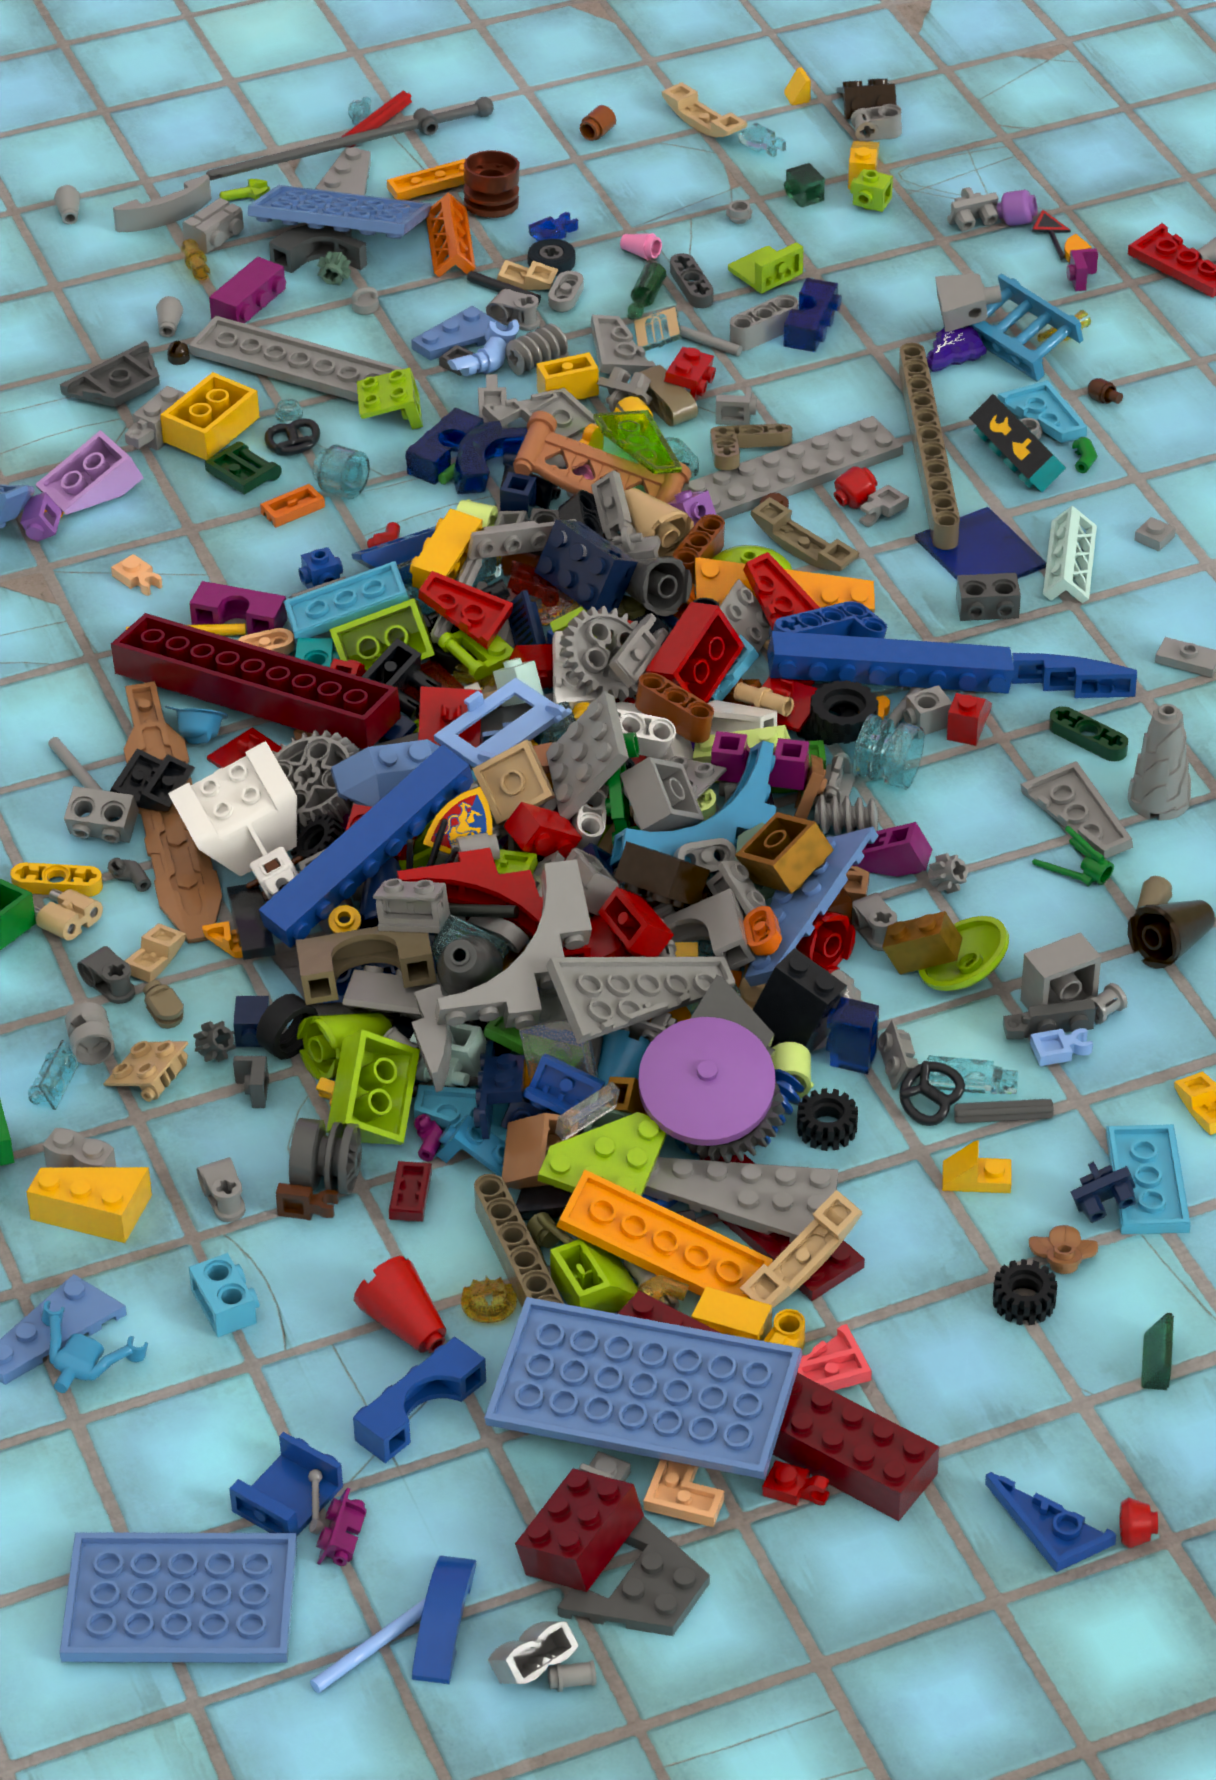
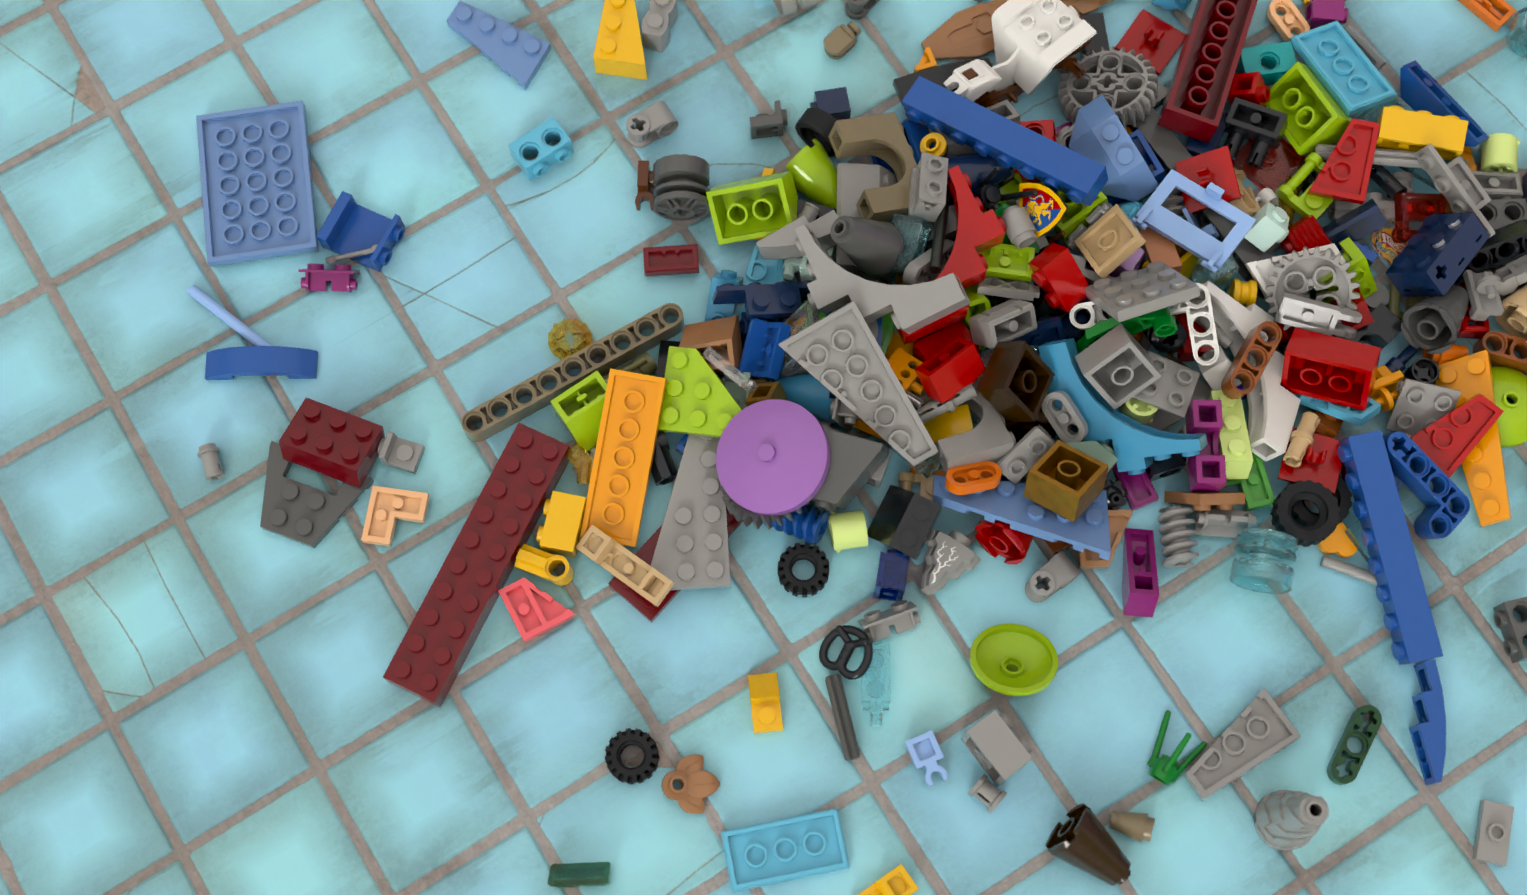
camera: 80 degrees right, 30 degrees up
(81, 1353) = (468, 65): dark azure piece -> none
(150, 1067) = (771, 43): tan hinge -> none
(156, 952) = (901, 23): tan slope -> none
(214, 1041) = (795, 84): dark grey gear -> none
(317, 836) = (1041, 108): black tyre -> none
(319, 567) = (1393, 42): blue brick -> none
(391, 533) = (1458, 90): red arm -> none
(402, 1304) = (538, 277): red cone -> none
(429, 1133) = (737, 264): magenta arm -> none
(448, 1373) = (429, 288): blue arch -> none
(536, 1649) = (217, 429): light grey brick -> none
(644, 1387) = (458, 466): medium blue plate -> none
(791, 1483) = (410, 594): red plate -> none
(922, 942) = (1017, 621): pearl gold brick -> none
(928, 709) = (1354, 591): light grey brick -> none
(947, 873) = (1122, 634): light grey gear -> none
(967, 718) = (1347, 629): red slope -> none
(1049, 1017) = (952, 743): dark grey hinge -> none
(1054, 1531) = (382, 806): blue wing -> none
(1102, 1186) = (741, 801): dark blue hips -> none
(1136, 1522) = (391, 871): red cone -> none

